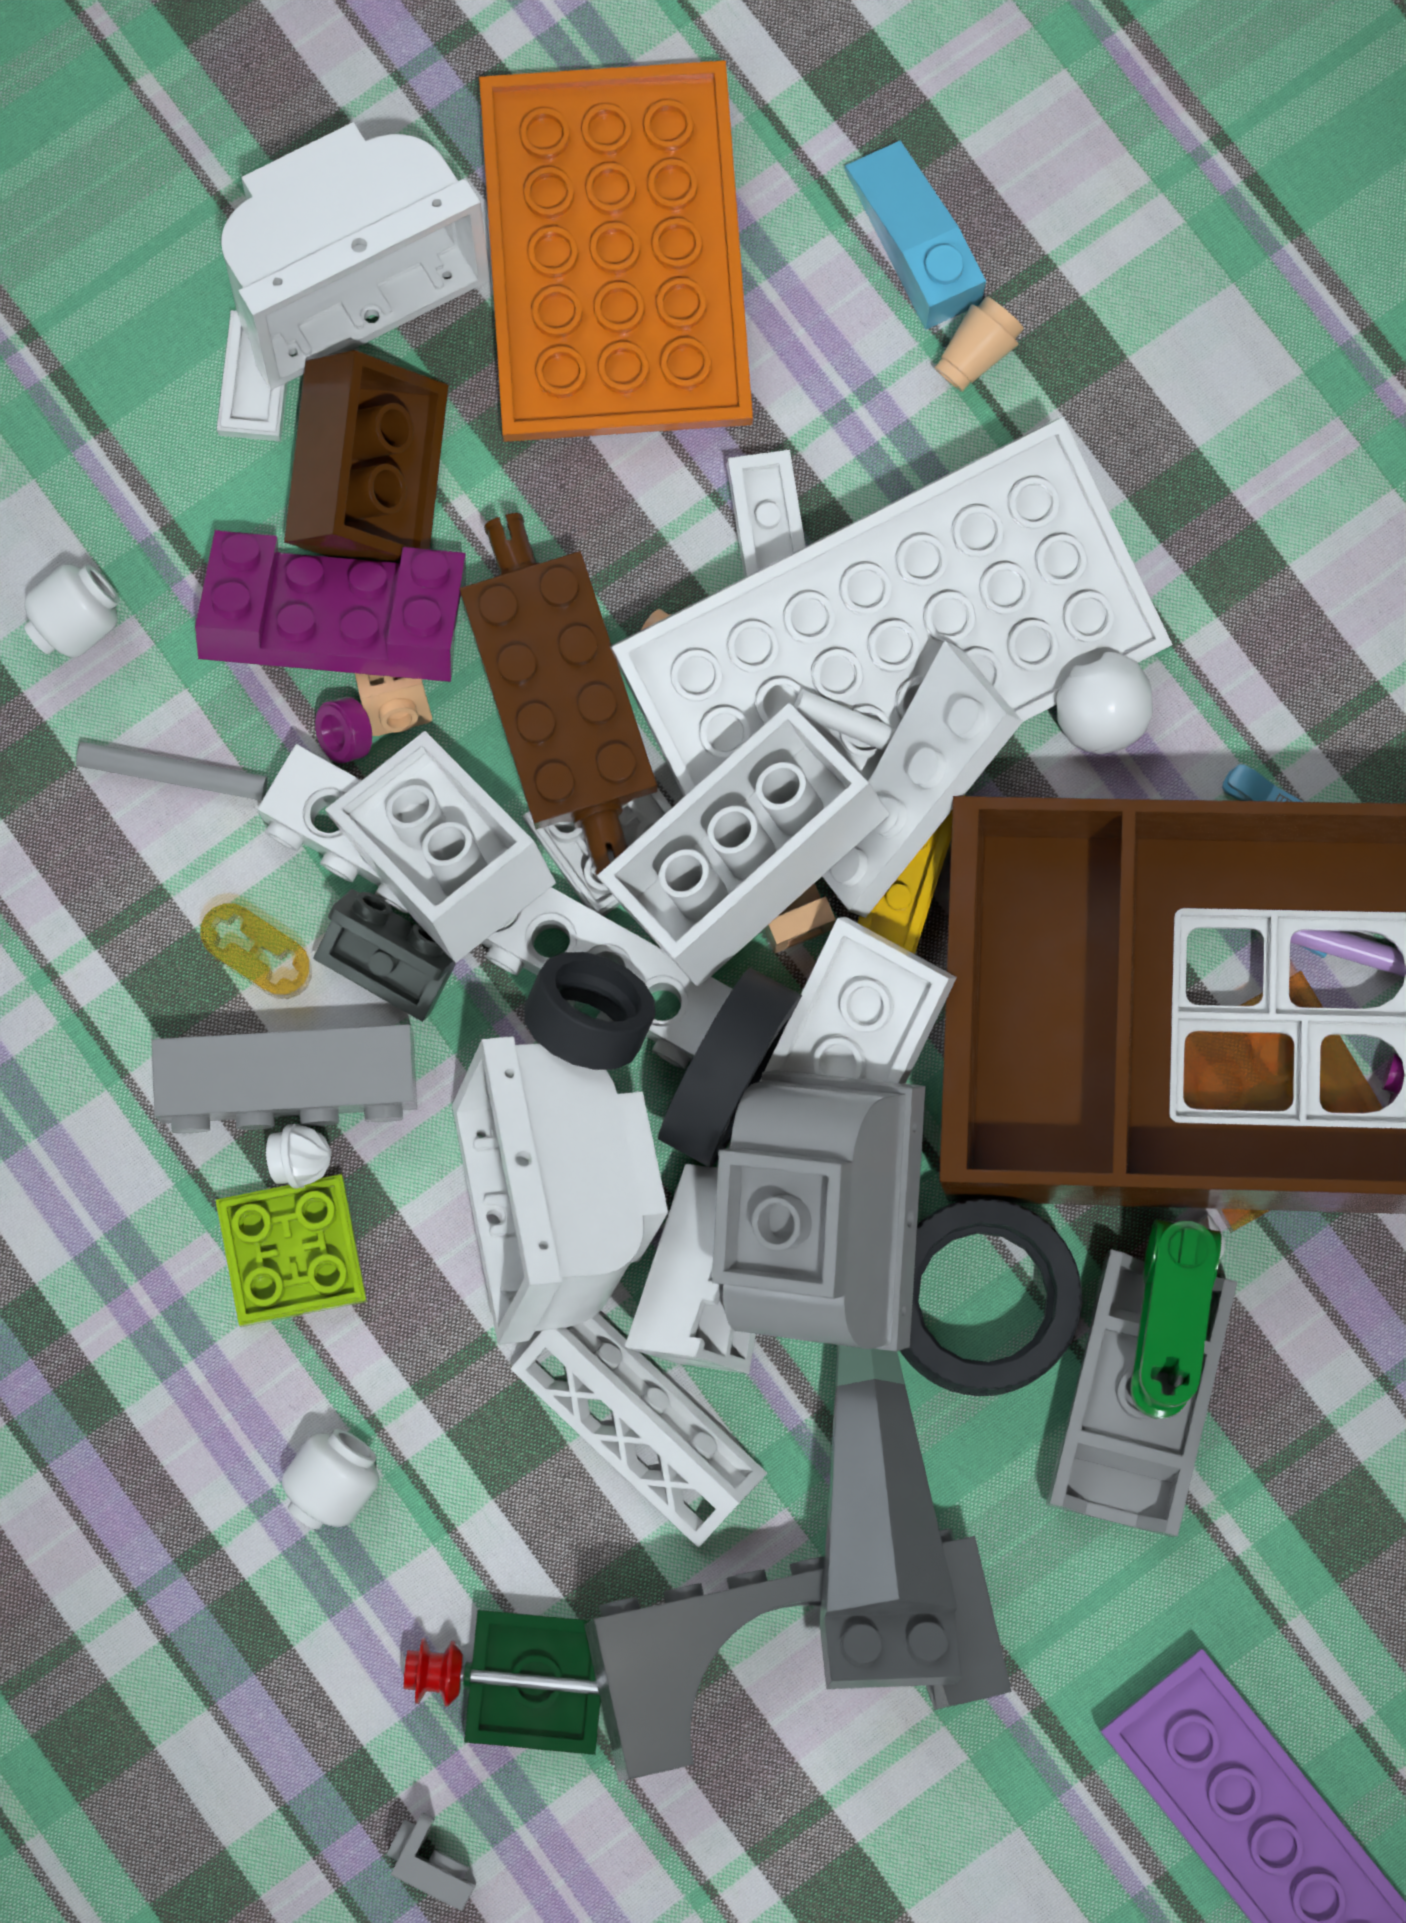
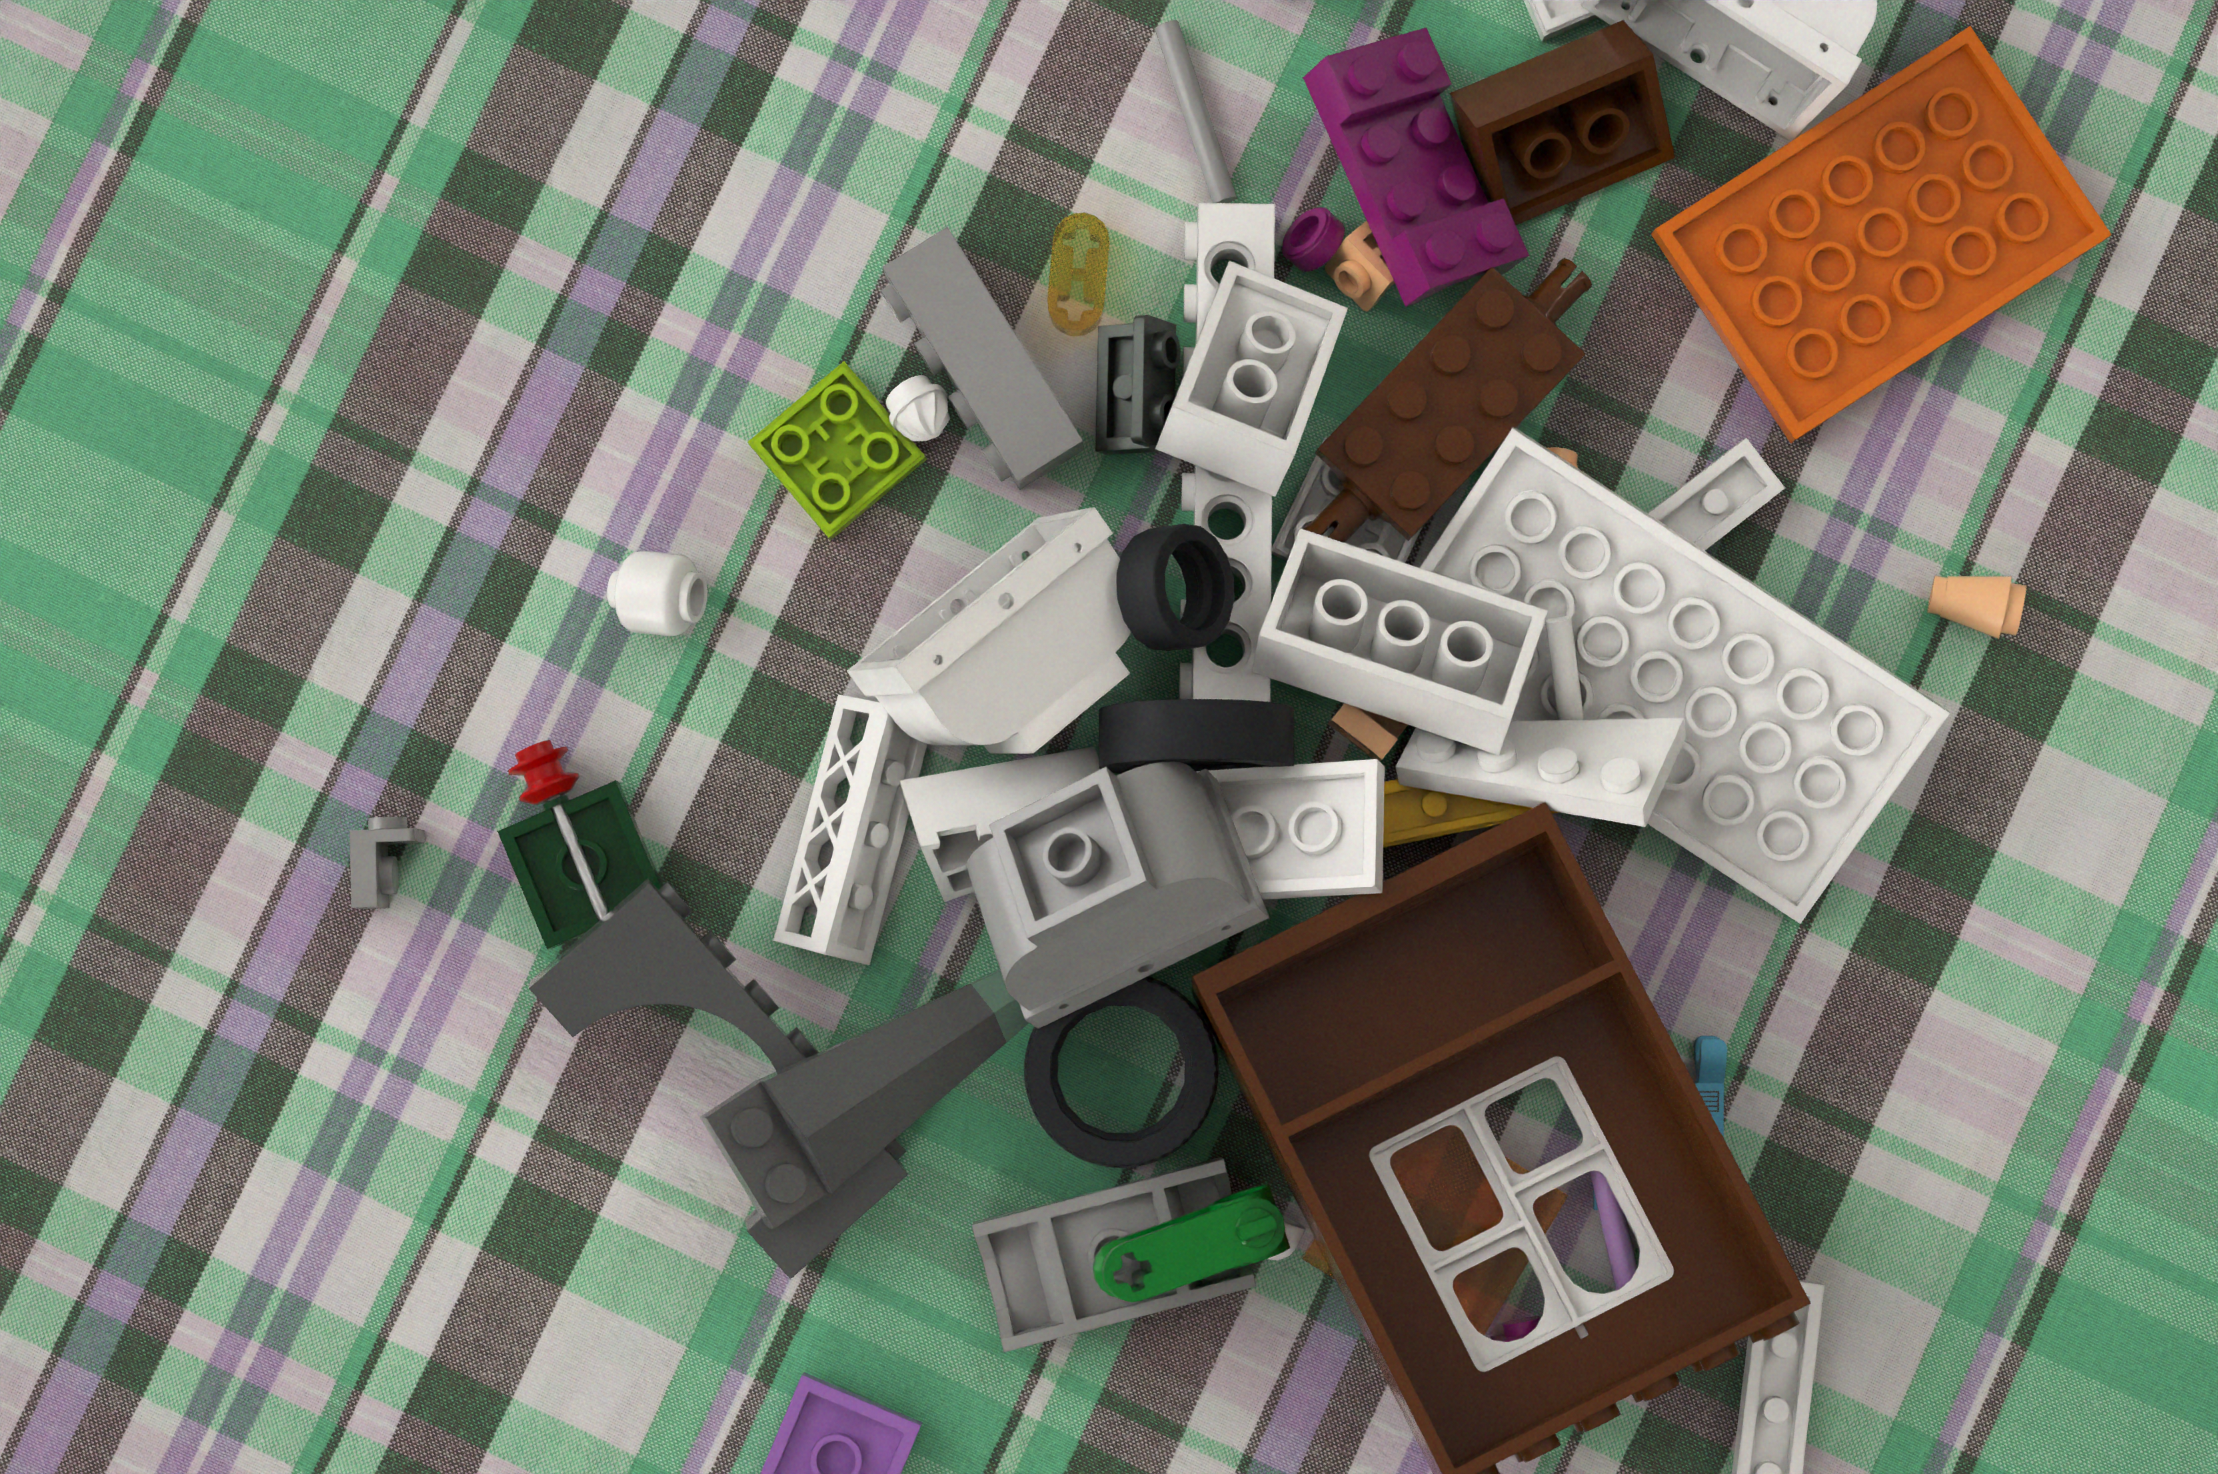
camera: 65 degrees right, 5 degrees up
(917, 234) = (2049, 493): medium azure slope -> none
(1105, 704) = (1711, 893): white hair -> none

